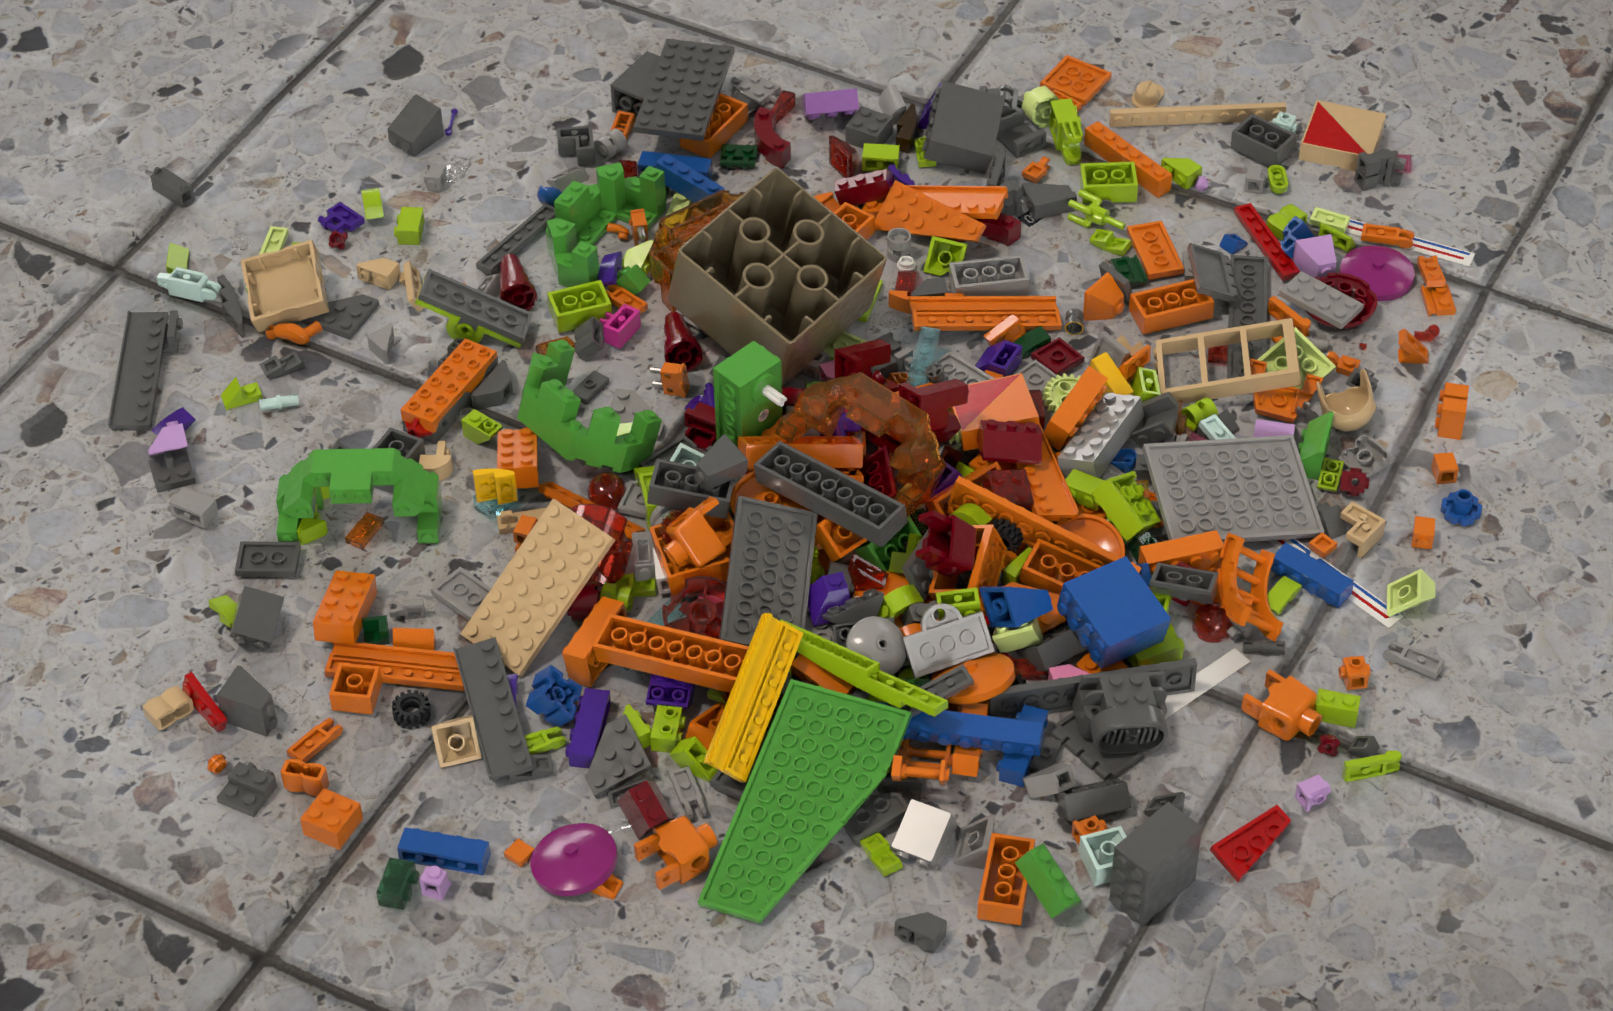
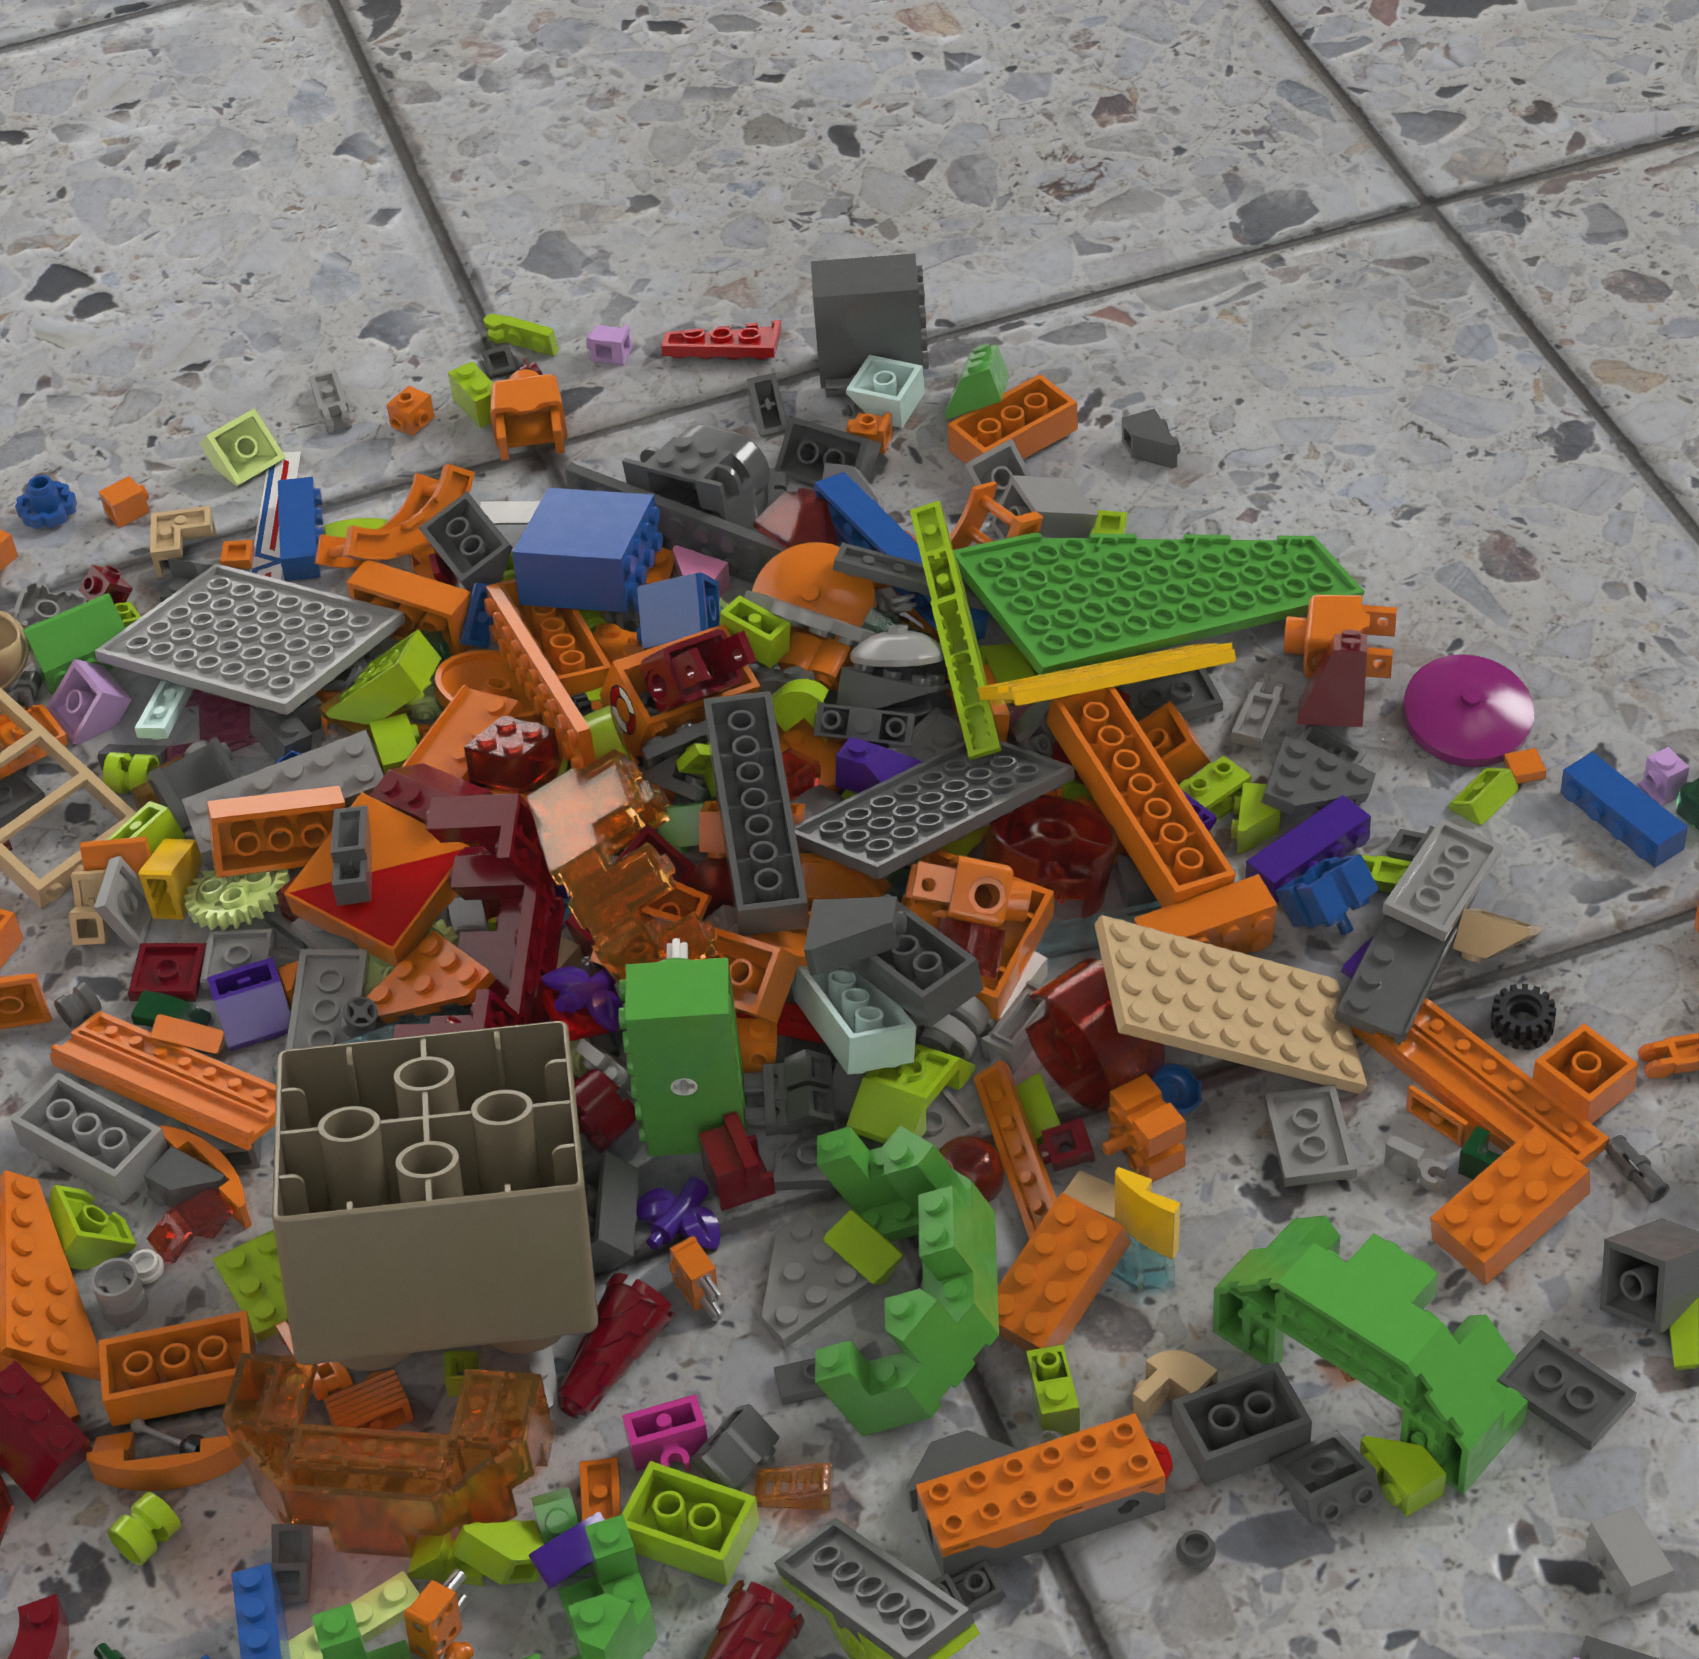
camera: 135 degrees left, 0 degrees up
(303, 671) = (1651, 1183): none -> dark grey pin
(376, 419) = (1195, 1550): none -> dark grey plate
(495, 725) = (1442, 879): none -> light grey plate
(528, 822) = (1484, 795): none -> lime slope
(692, 754) = (1219, 738): lime slope -> none
(1004, 390) = (351, 855): none -> dark grey slope
(1030, 704) = (798, 519): none -> clear red slope

